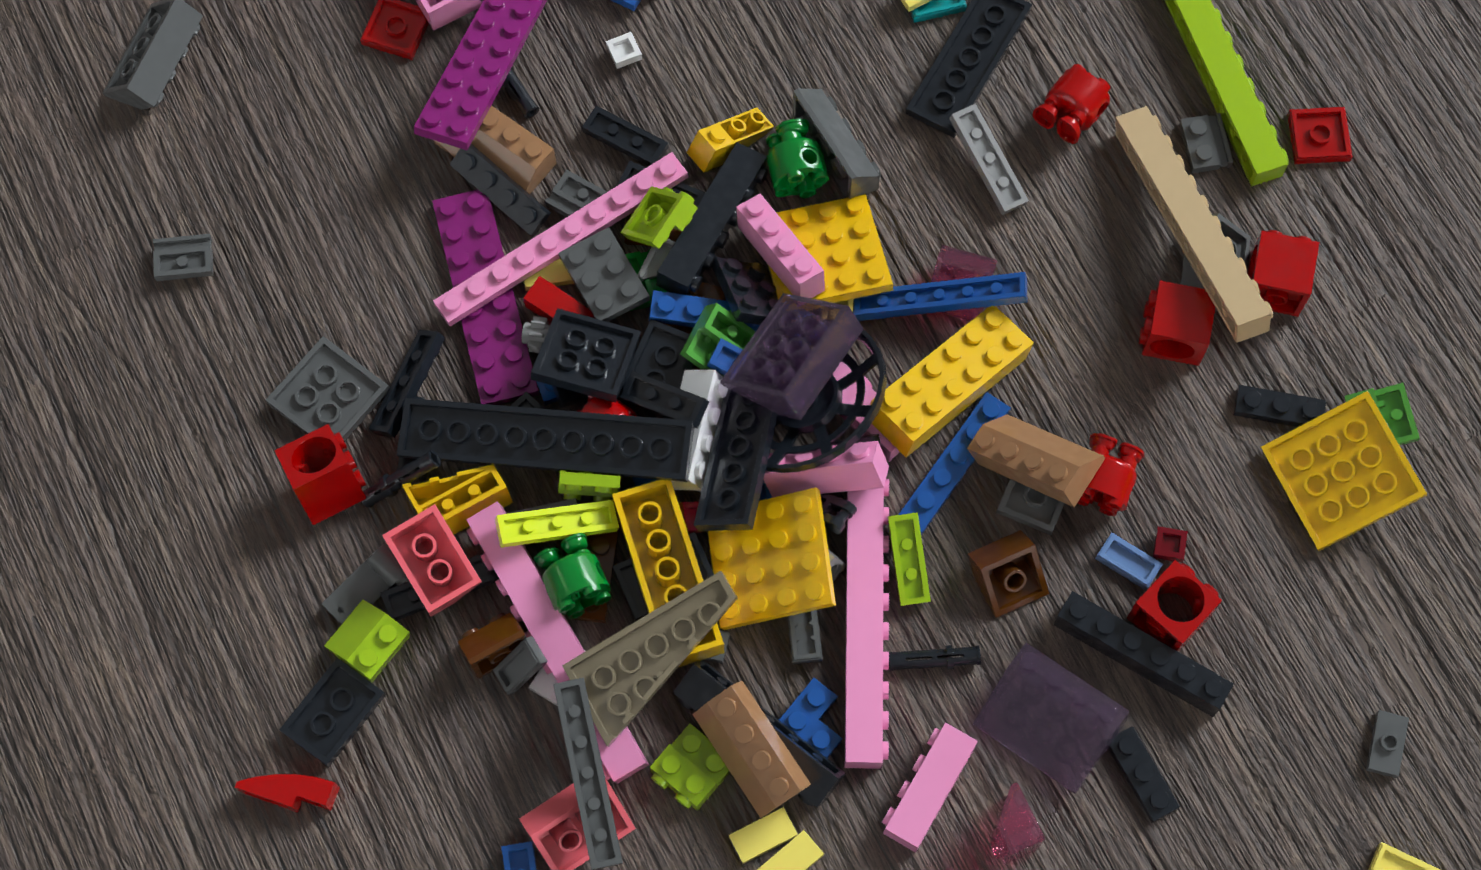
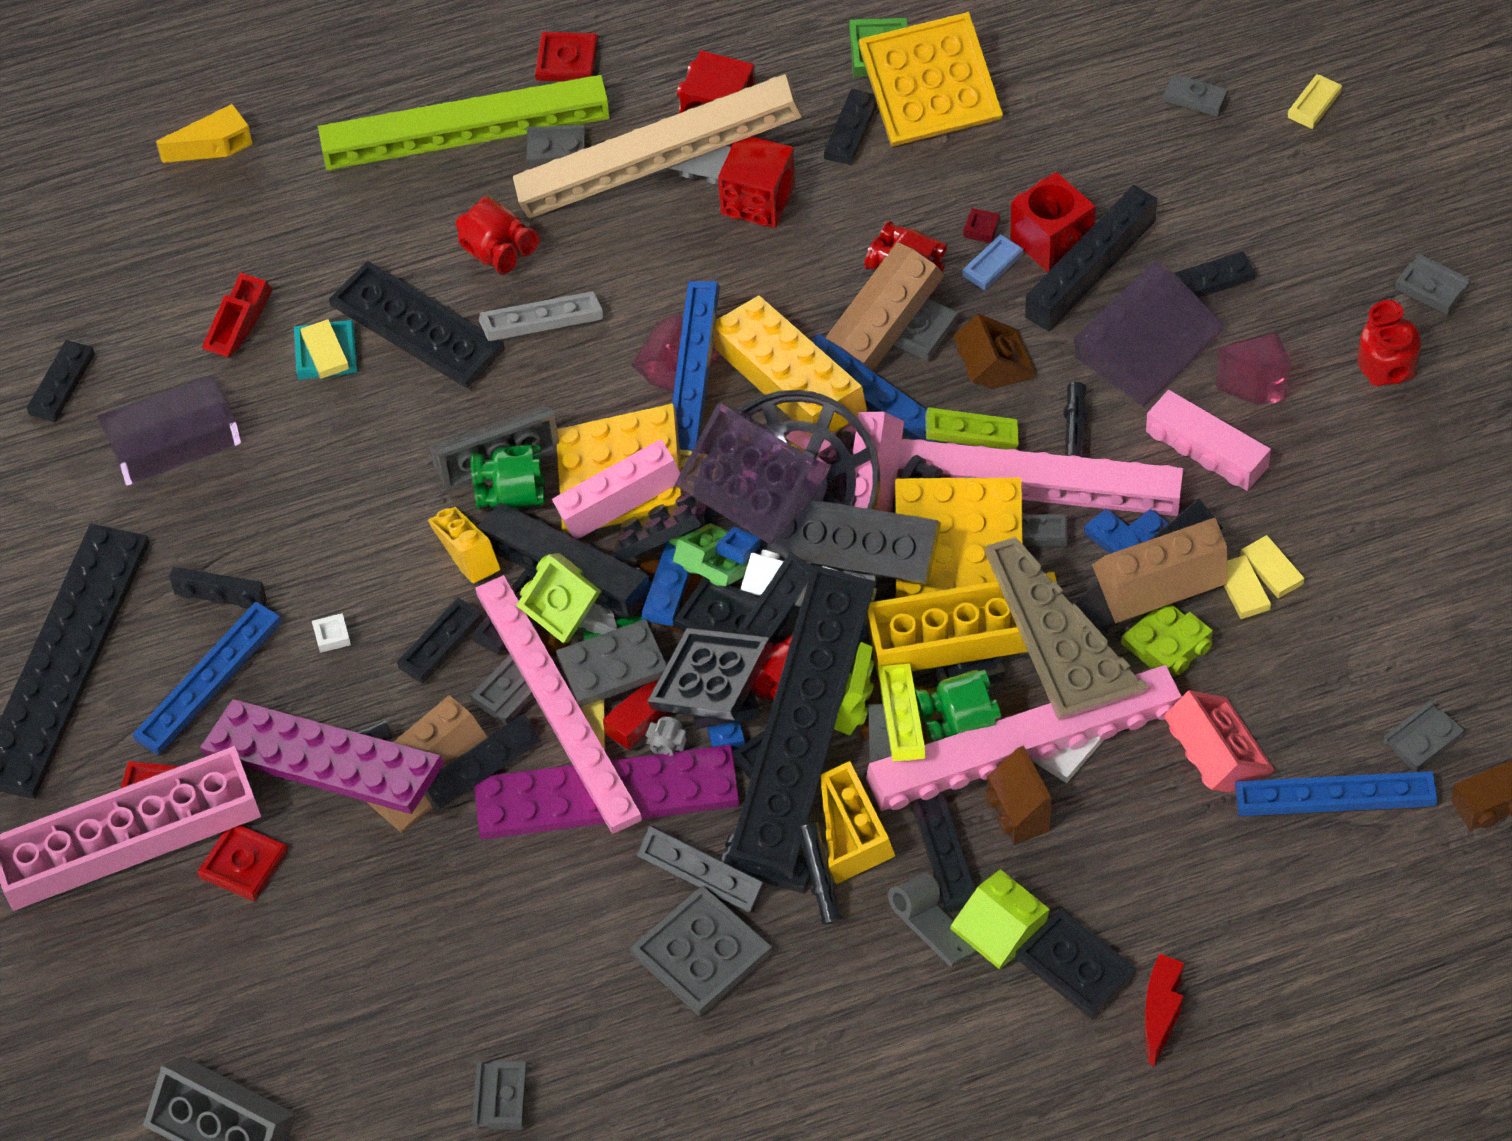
camera: 80 degrees left, 15 degrees down
(322, 473) = (823, 960): red brick -> none
(432, 560) = (927, 834): coral slope -> none
(520, 665) = (1048, 764): dark grey tile -> none
(587, 774) = (1179, 699): dark grey plate -> none

